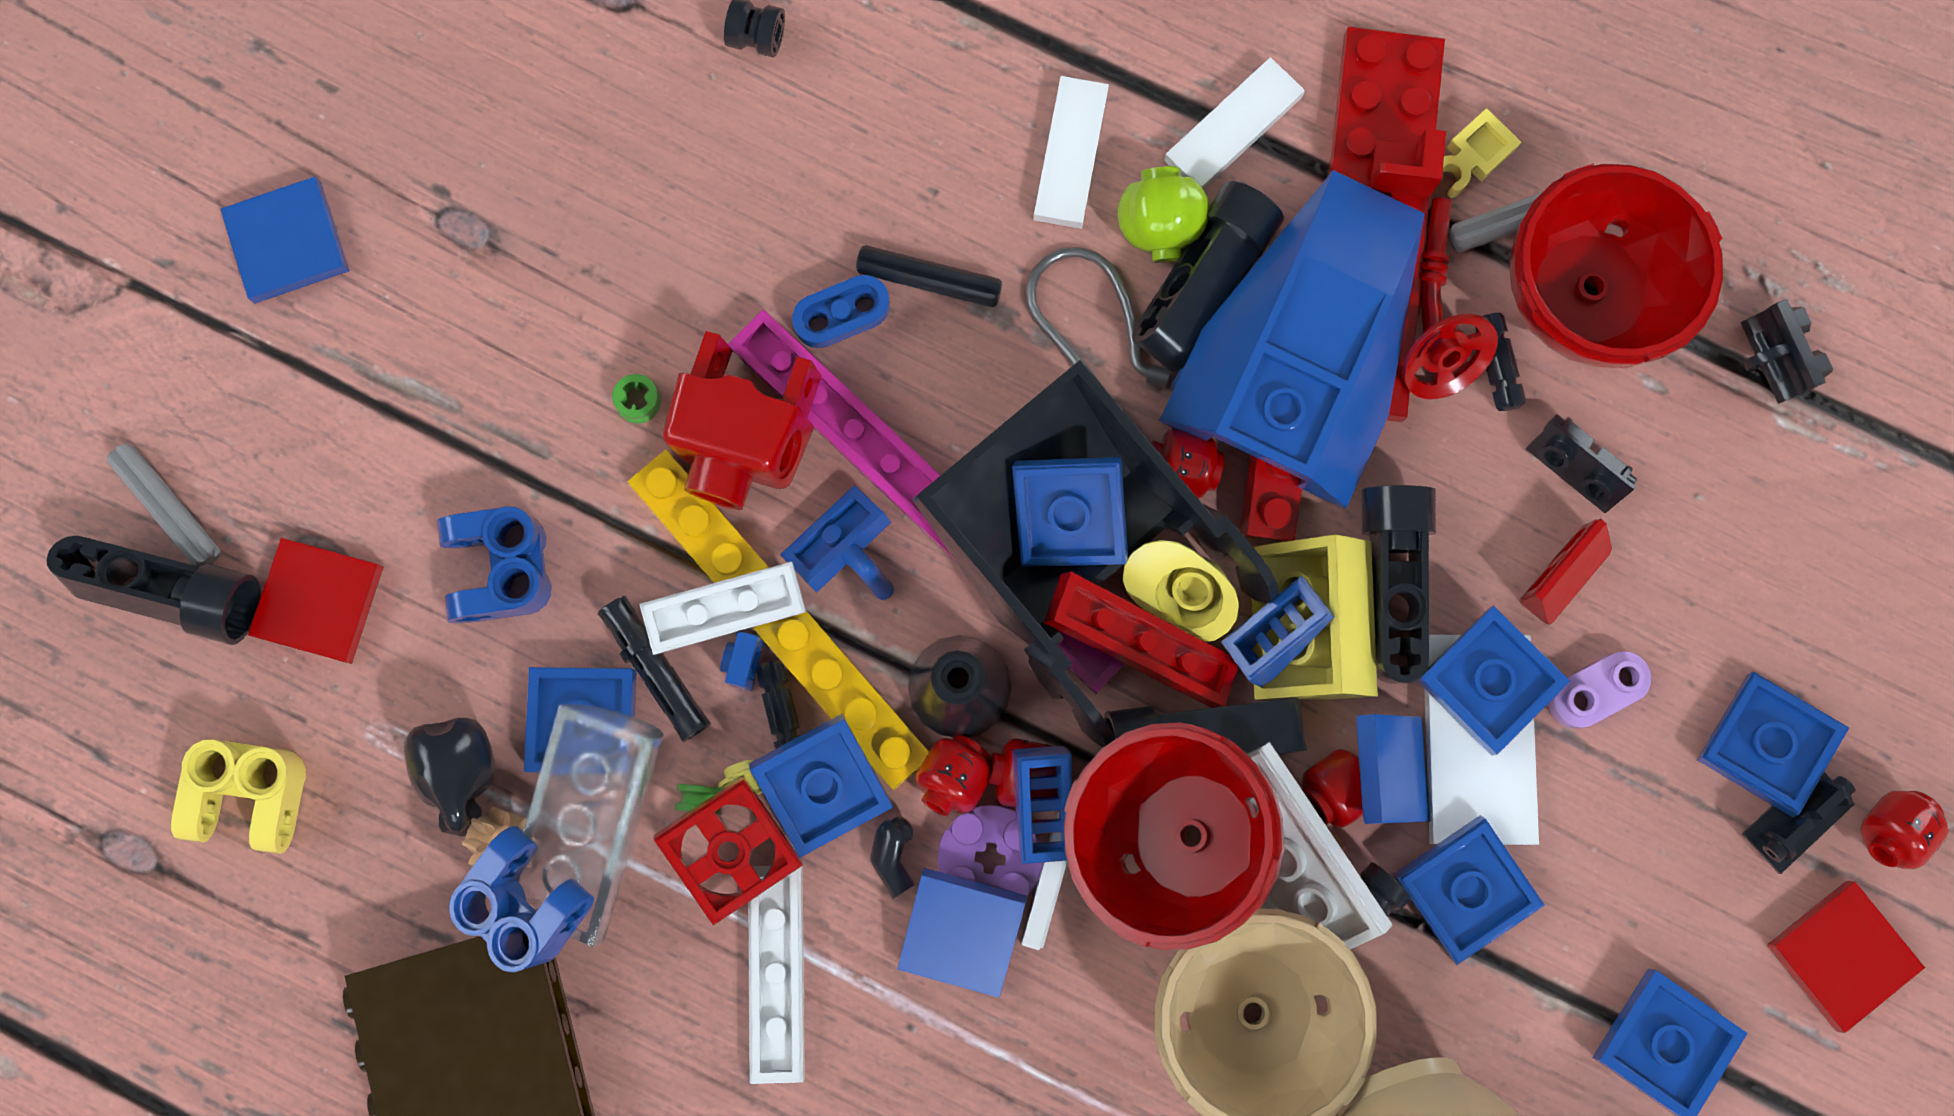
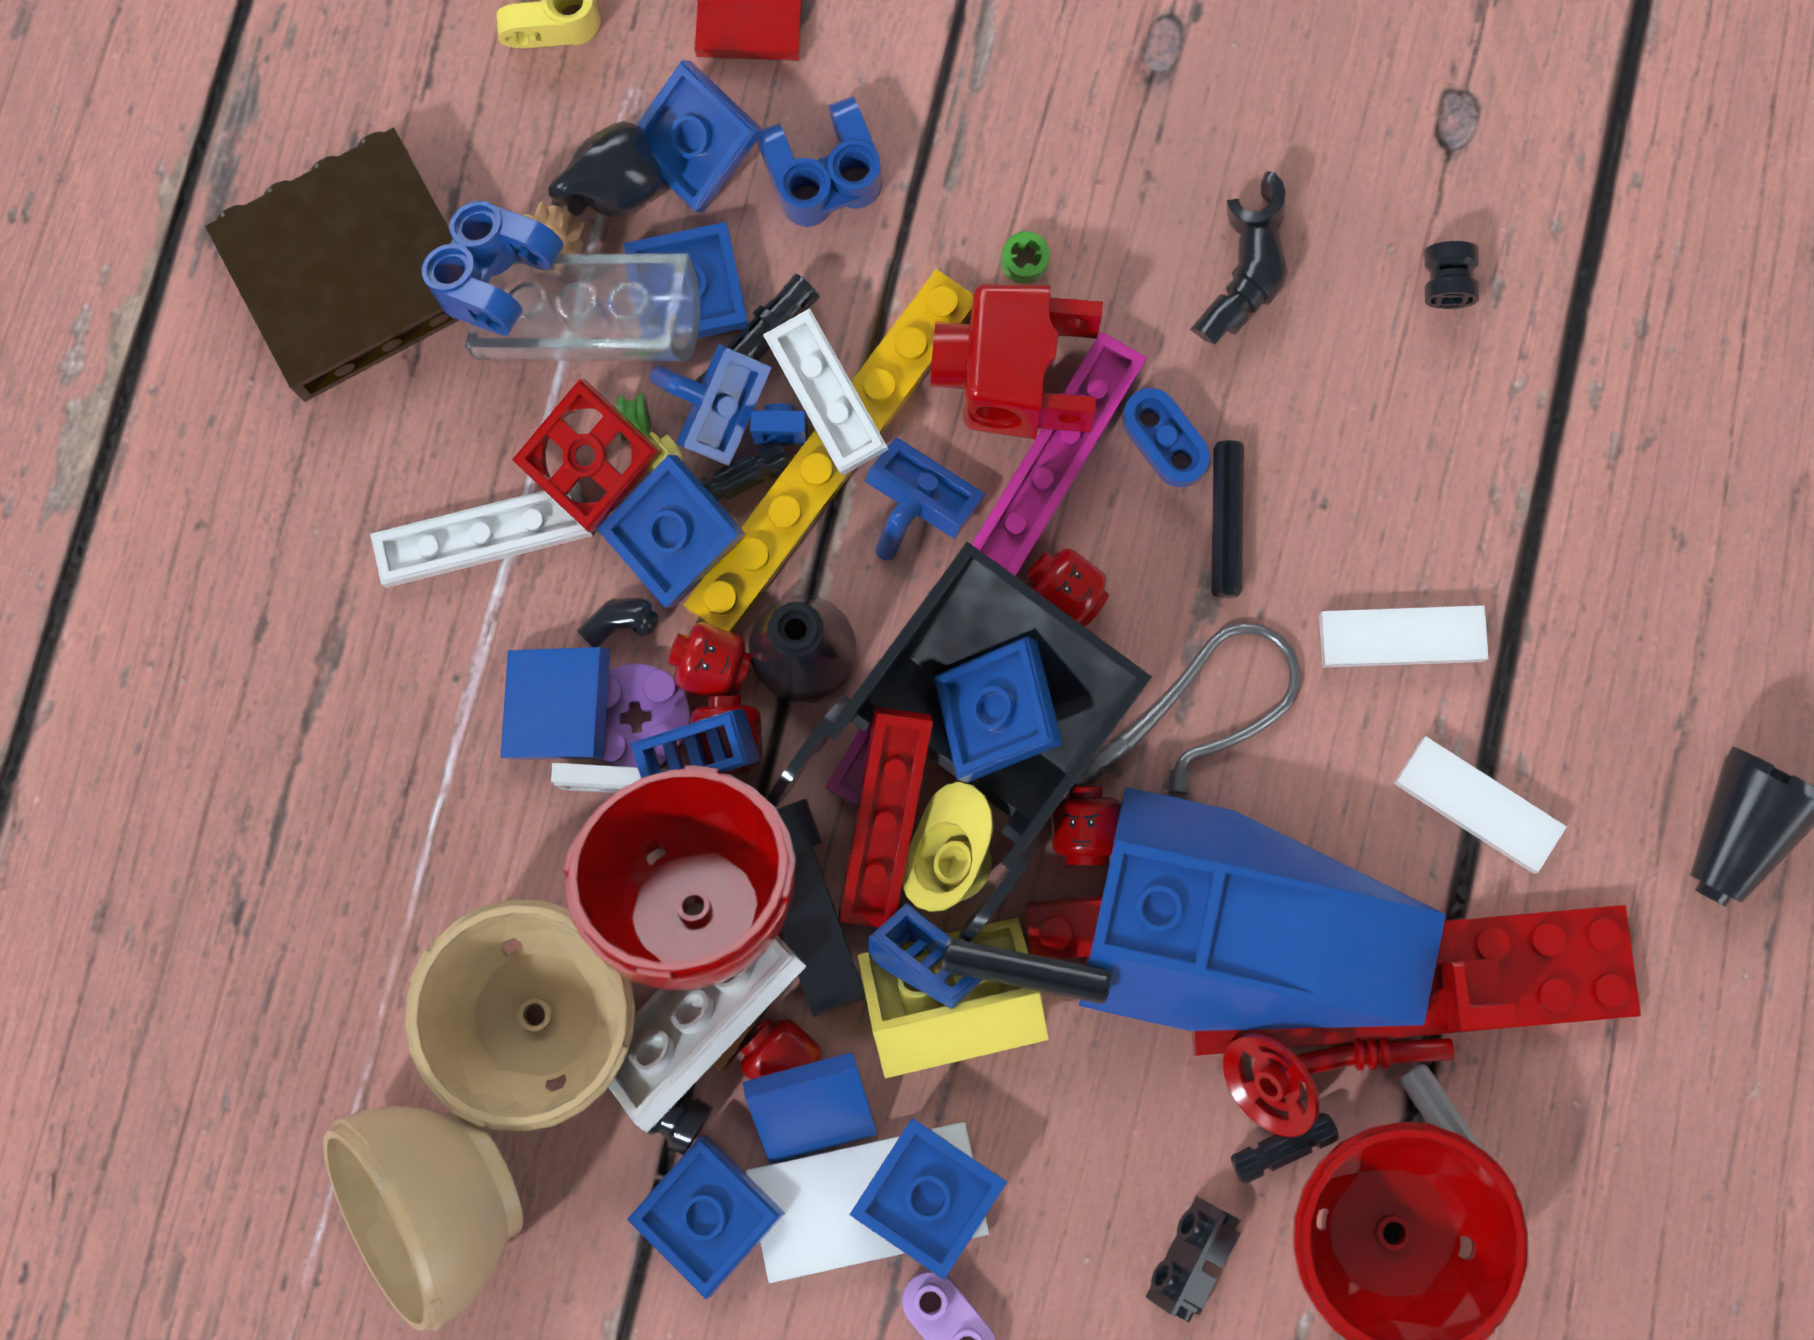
camera: 80 degrees right, 0 degrees up
(434, 676) = (697, 135): none -> blue tile
(700, 189) = (1259, 268): none -> black piece
(709, 711) = (719, 404): none -> plate
(959, 427) = (1070, 584): none -> red head
(1163, 213) = (1356, 747): lime plant -> none
(1207, 272) = (1326, 816): black beam -> none
(1315, 541) = (1026, 971): none -> black axle
(1398, 523) = (1073, 1066): black beam -> none
(1478, 150) = (1520, 1077): light yellow plate -> none
(1568, 571) = (1068, 1266): red slope -> none

